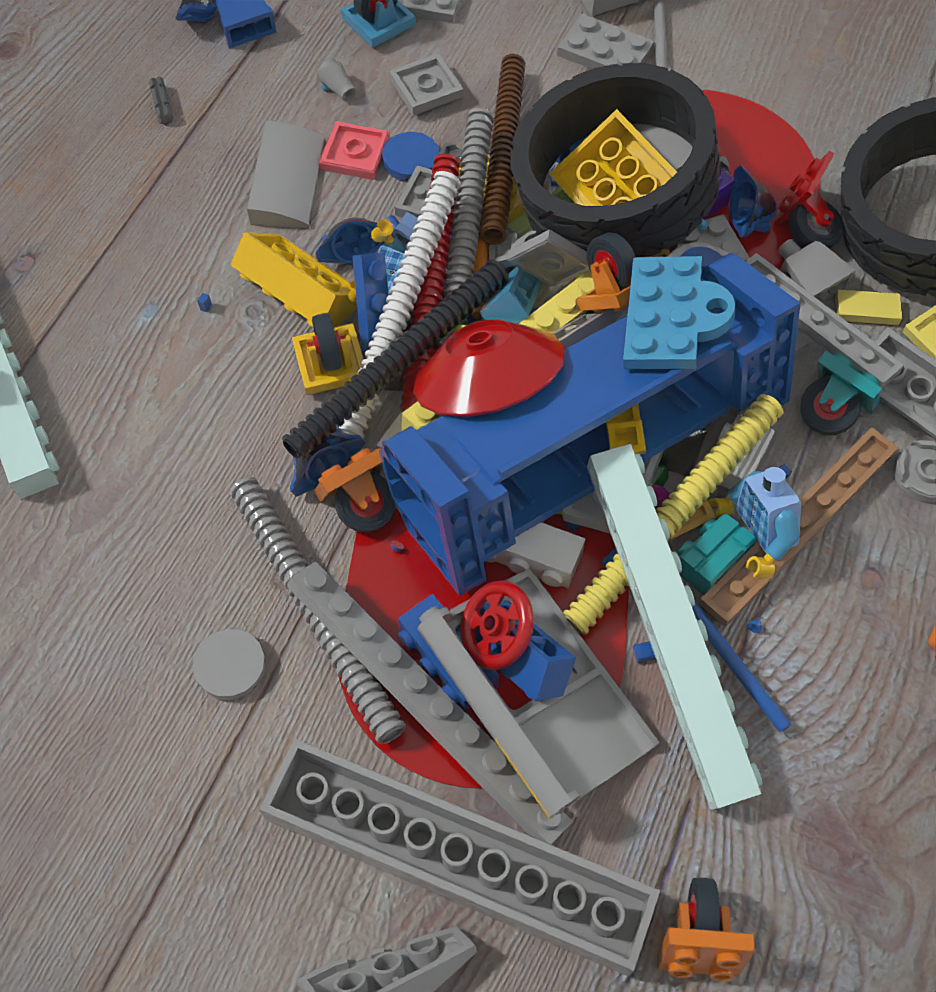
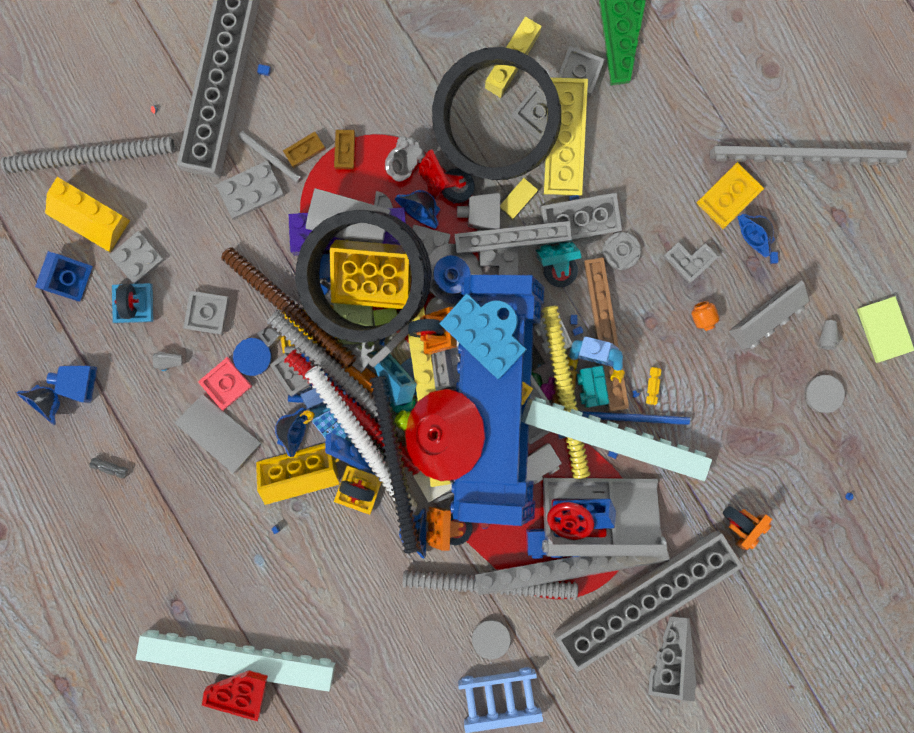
camera: 55 degrees left, 25 degrees up
(124, 770) = (512, 716): none -> light blue fence
(701, 65) = (304, 149): none -> pearl gold plate
(740, 98) = (344, 149): none -> pearl gold plate
(789, 151) = (404, 158): none -> light grey hair
(789, 640) = (653, 386): none -> yellow axle

